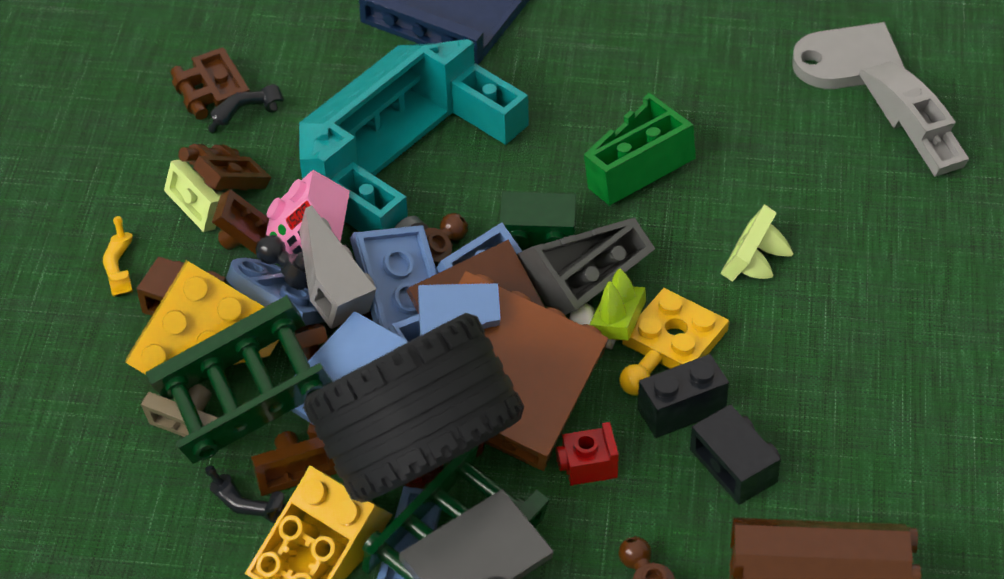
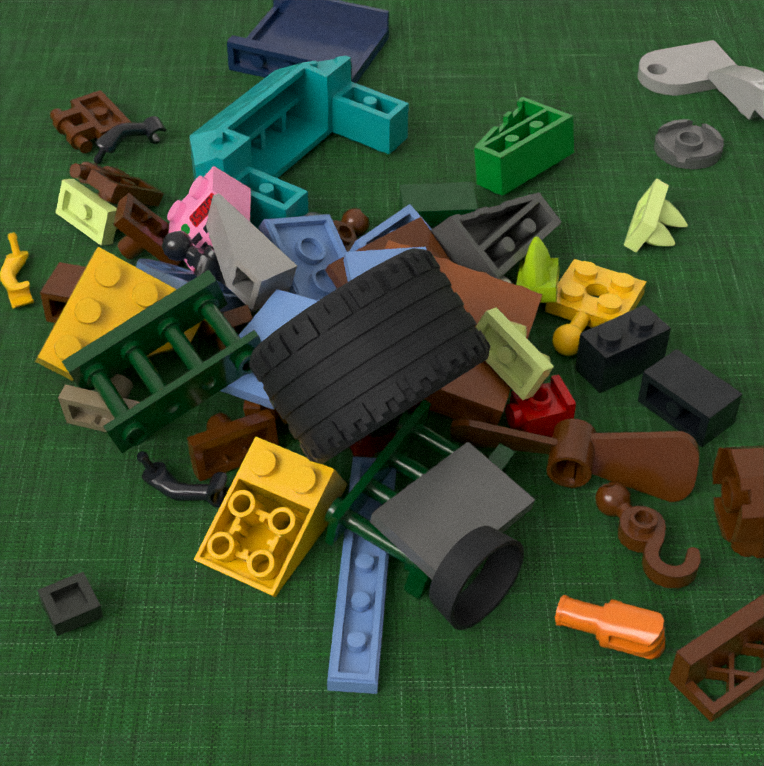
camera: 10 degrees left, 5 degrees down
(557, 396) = (513, 354): none -> yellowish green tile
(674, 519) = (649, 462): none -> reddish brown piece
(821, 155) = (688, 144): none -> dark grey tile

